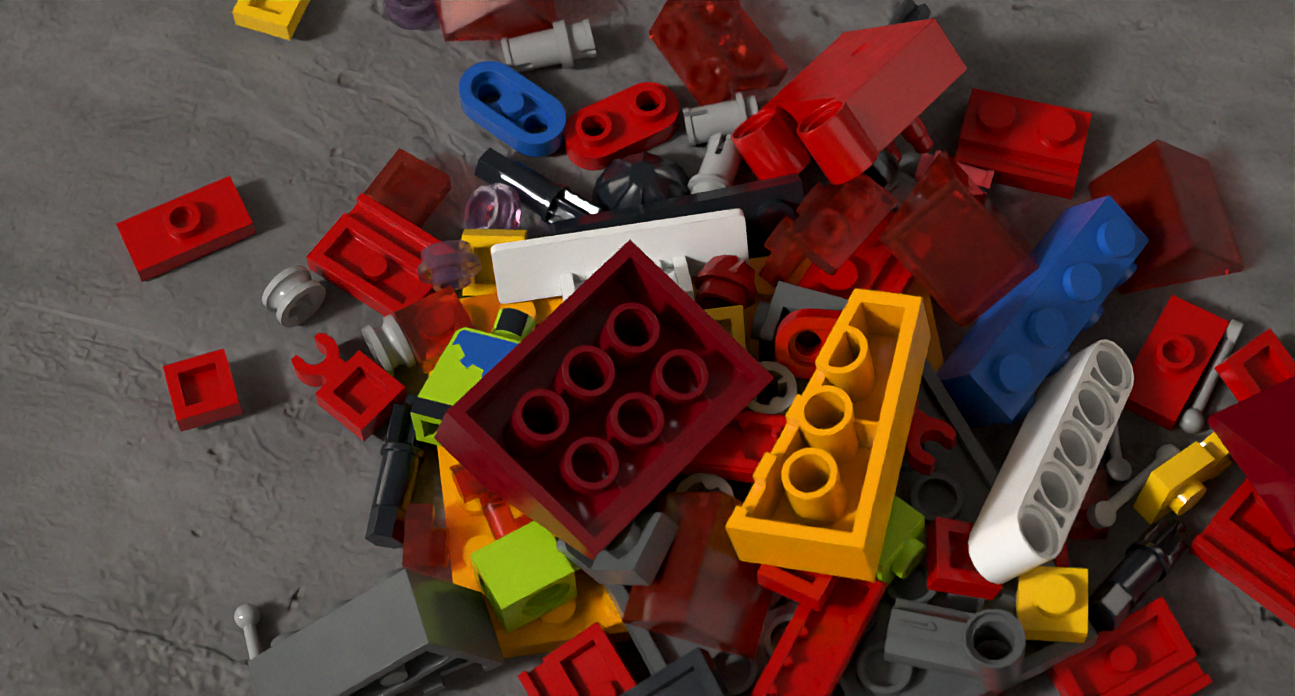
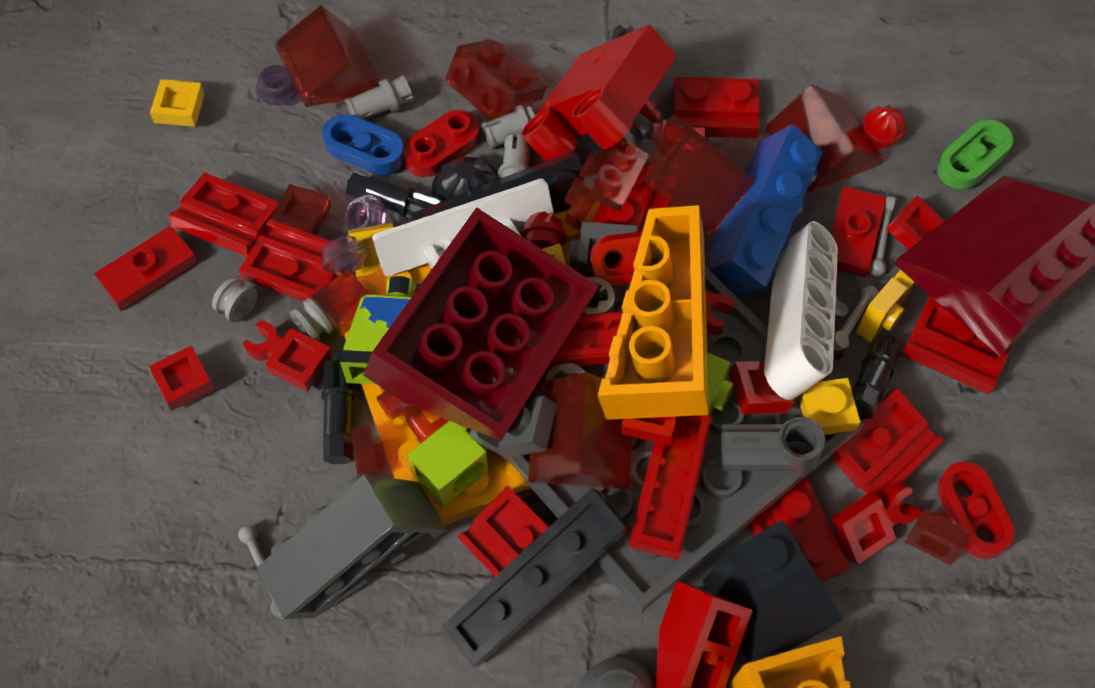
camera: 15 degrees left, 0 degrees up
(303, 173) = (223, 213): none -> red plate
(1256, 217) = (884, 126): none -> red plate

